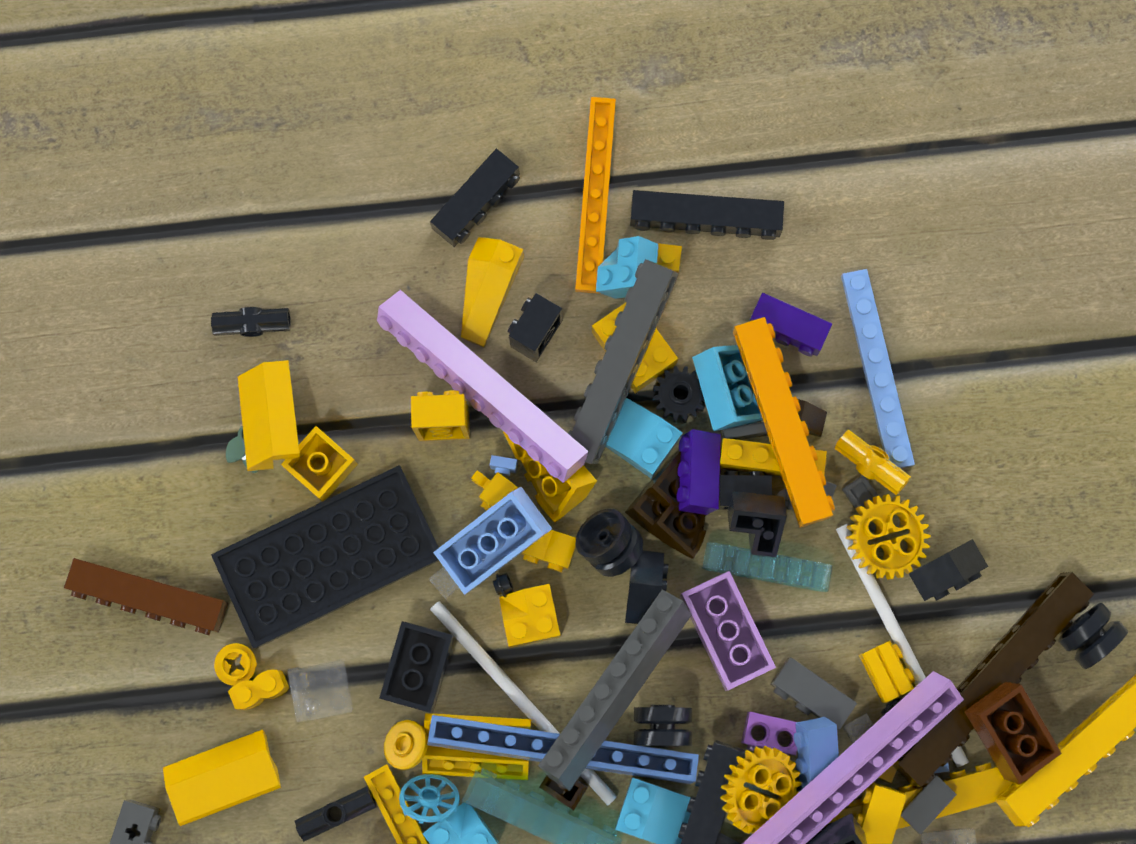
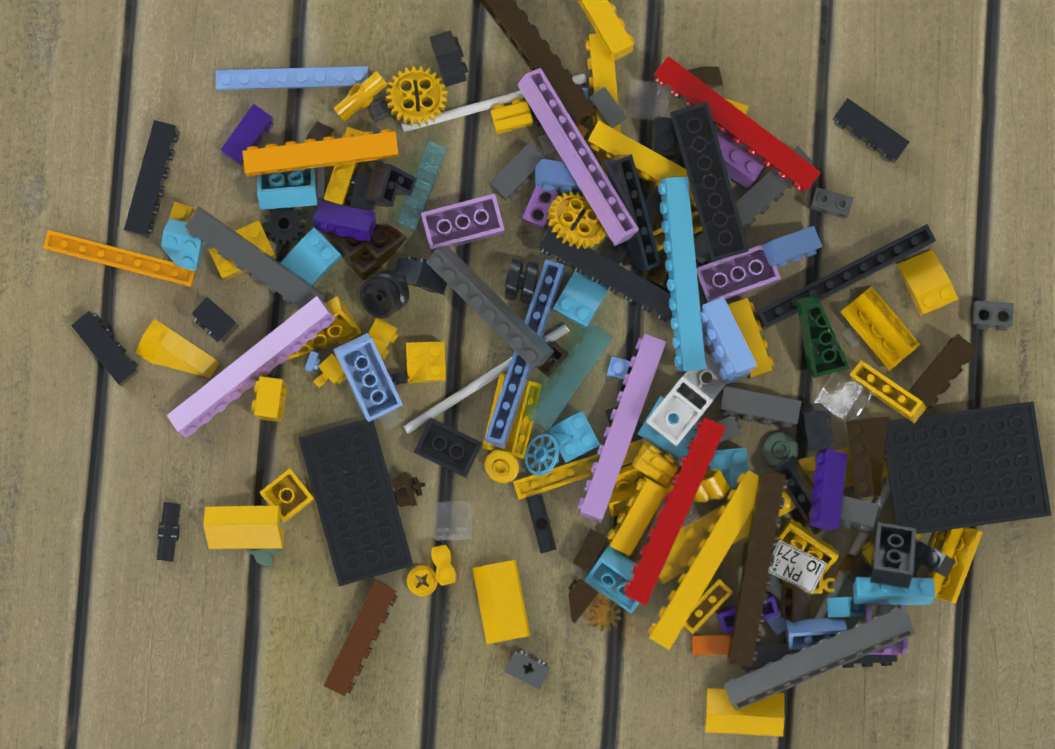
camera: 85 degrees left, 5 degrees up
(342, 627) = (409, 498): none -> dark brown hips
(1013, 732) = (568, 39): reddish brown brick -> none

